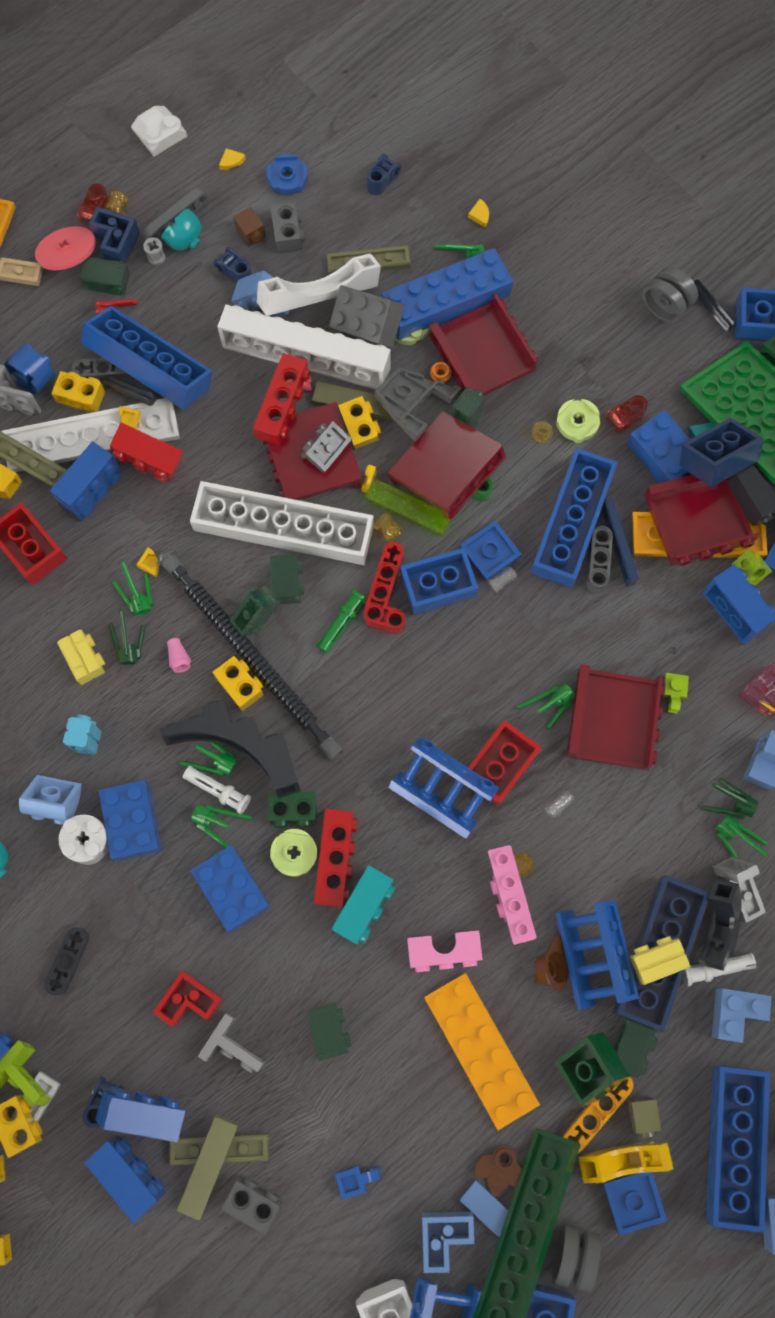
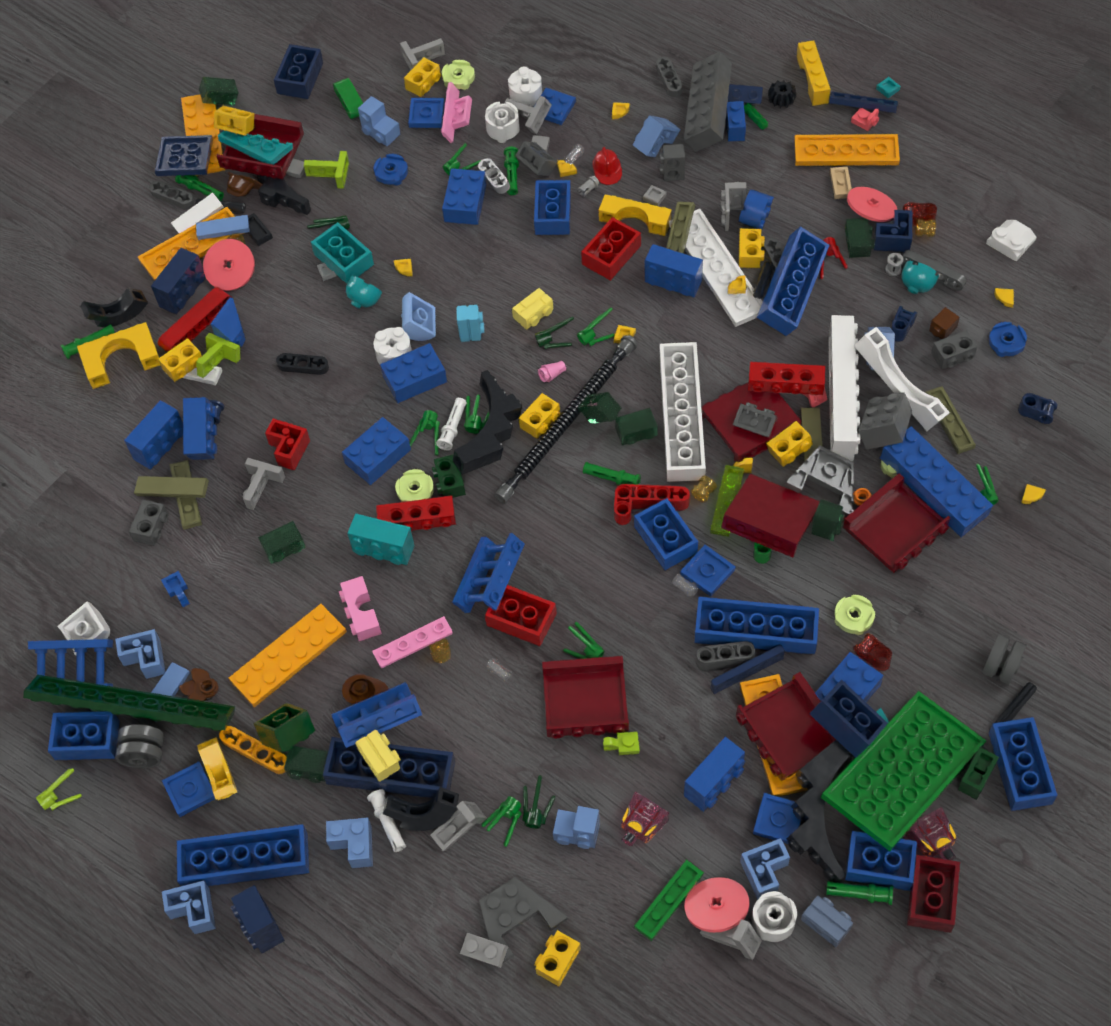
camera: 80 degrees right, 15 degrees down
(145, 453) = (707, 300): red brick -> none
(542, 437) = (833, 593): clear yellow plate -> none
(644, 1116) = (256, 783): olive brick -> none
(753, 566) = (754, 780): lime brick -> none

